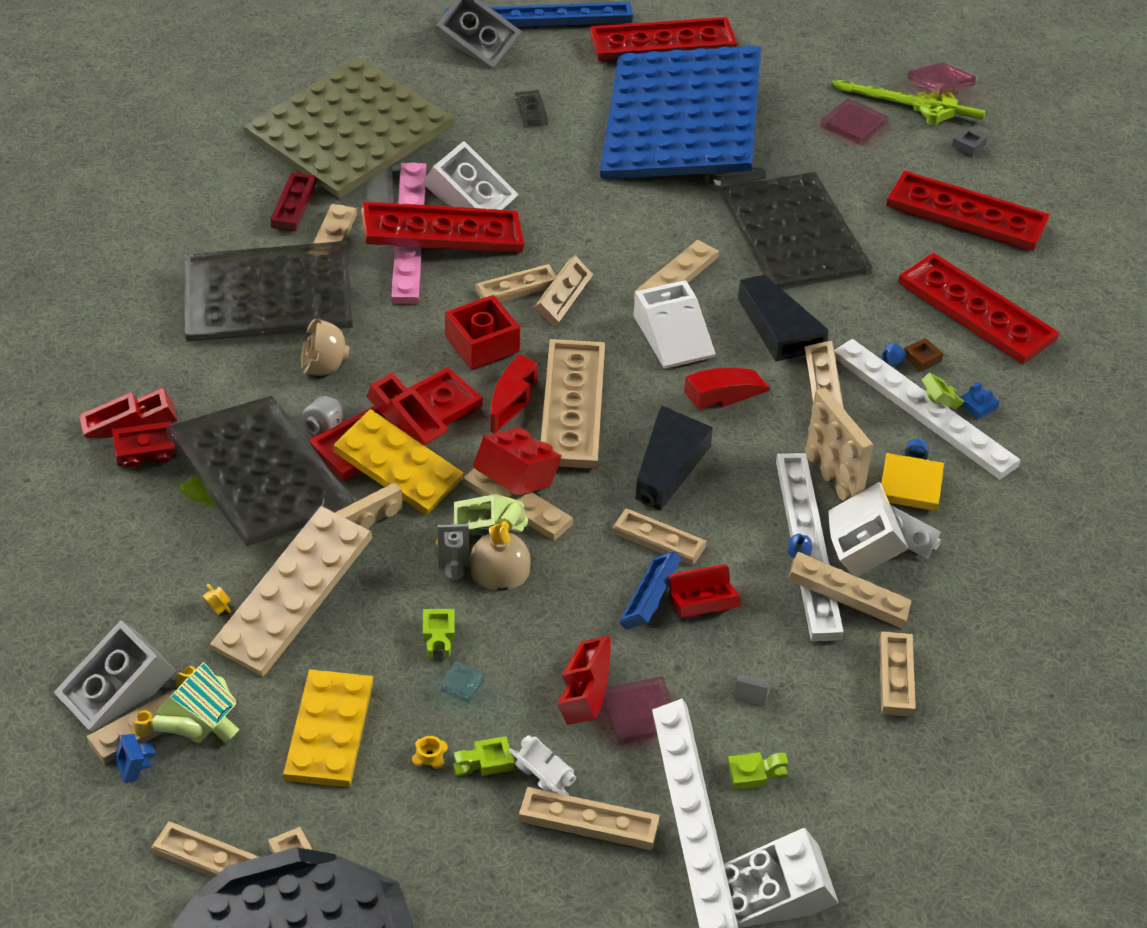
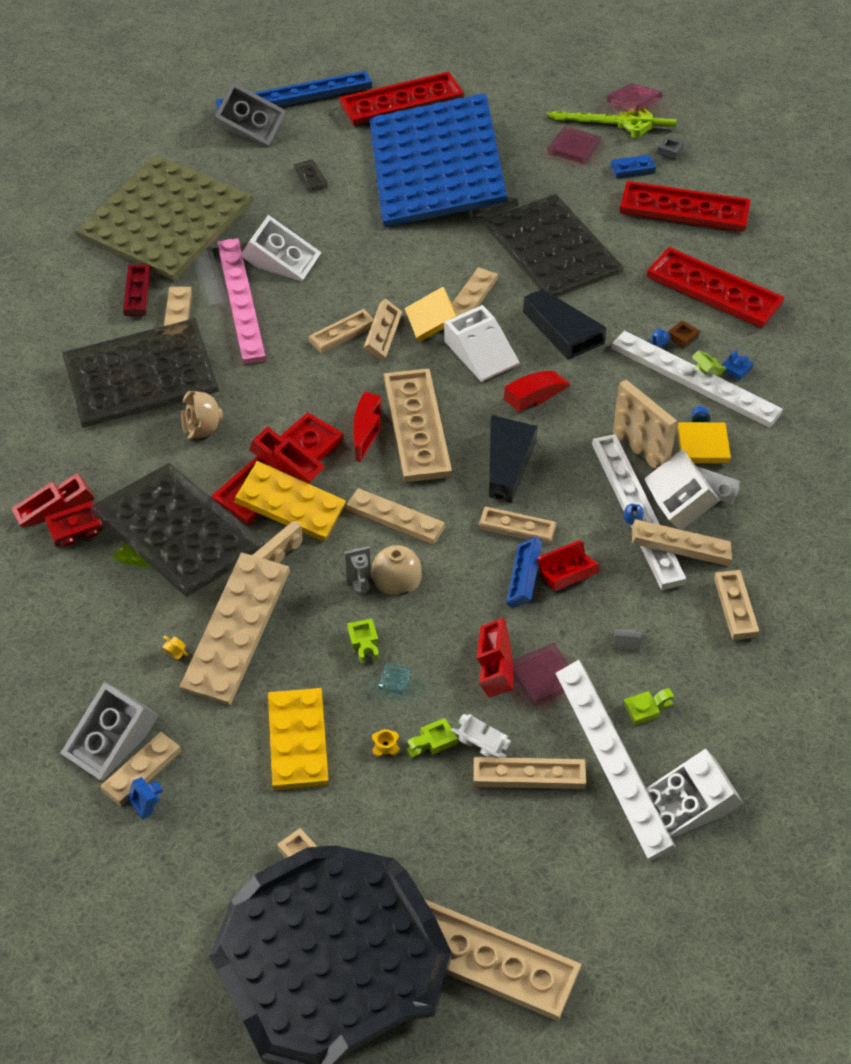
camera: 10 degrees left, 5 degrees up
(193, 708) = (184, 746): yellowish green torso -> none
(197, 850) = (223, 865): tan tile -> none
(322, 415) = (216, 472): light grey head -> none
(441, 227) = (268, 292): red plate -> none
(482, 331) = (327, 377): red brick -> none
(491, 515) = (381, 534): yellowish green torso -> none
(517, 461) = (388, 483): red brick -> none
(621, 280) = (430, 313): none -> yellow tile
(823, 369) = (609, 364): tan plate -> none
(918, 156) = (633, 166): none -> blue plate

